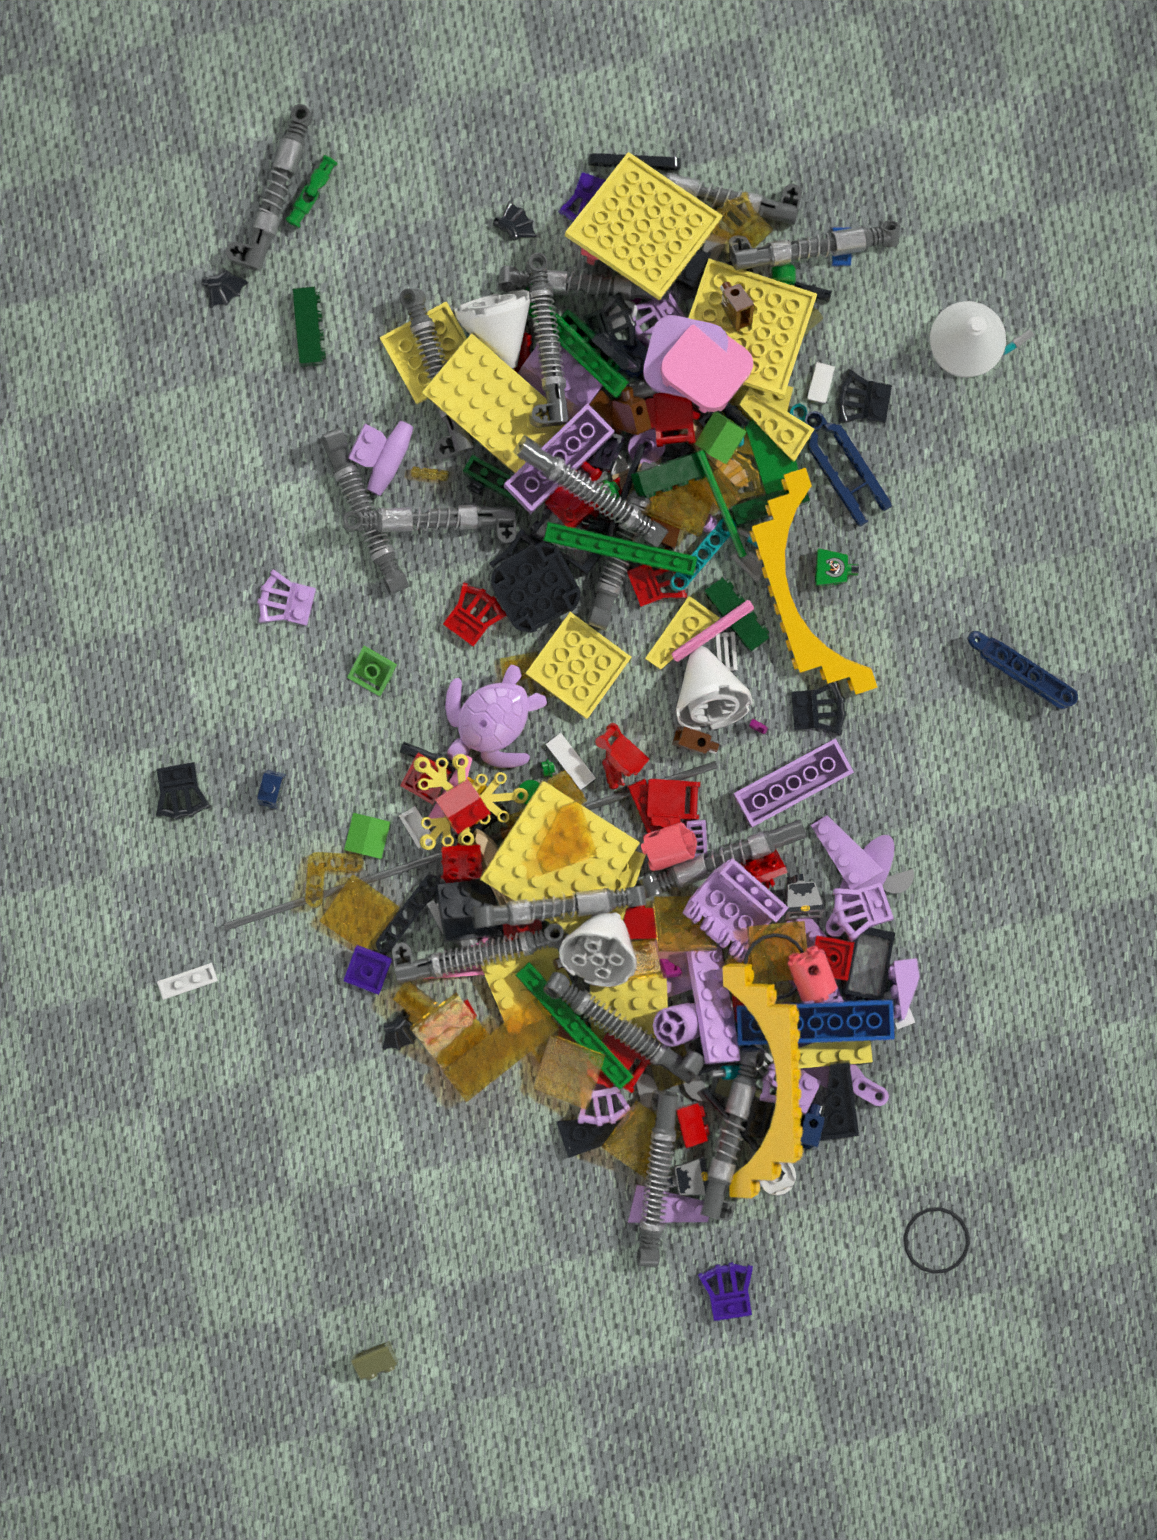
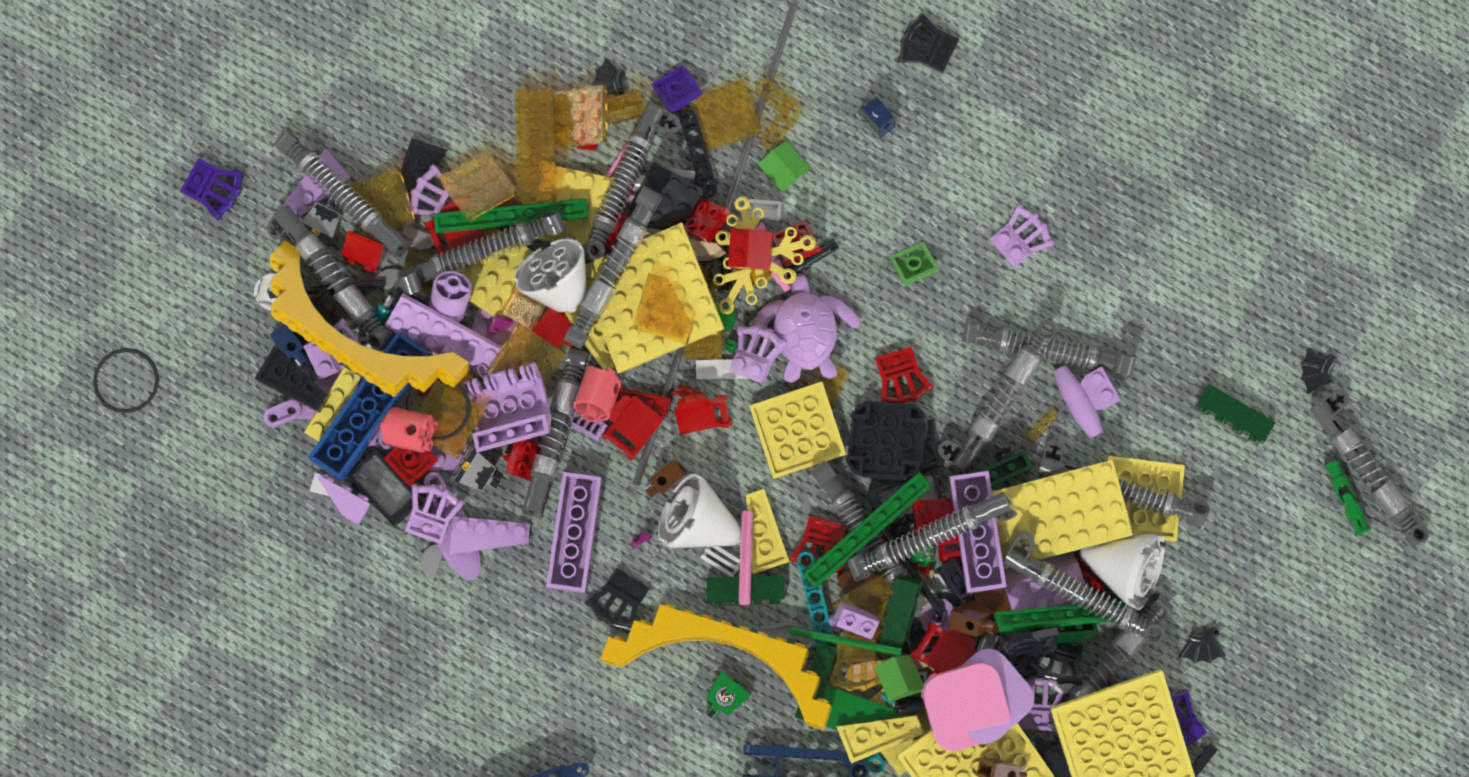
camera: 125 degrees right, 5 degrees down
(553, 740) = (752, 365): none -> lavender plate
(700, 505) = (856, 620): none -> lavender brick

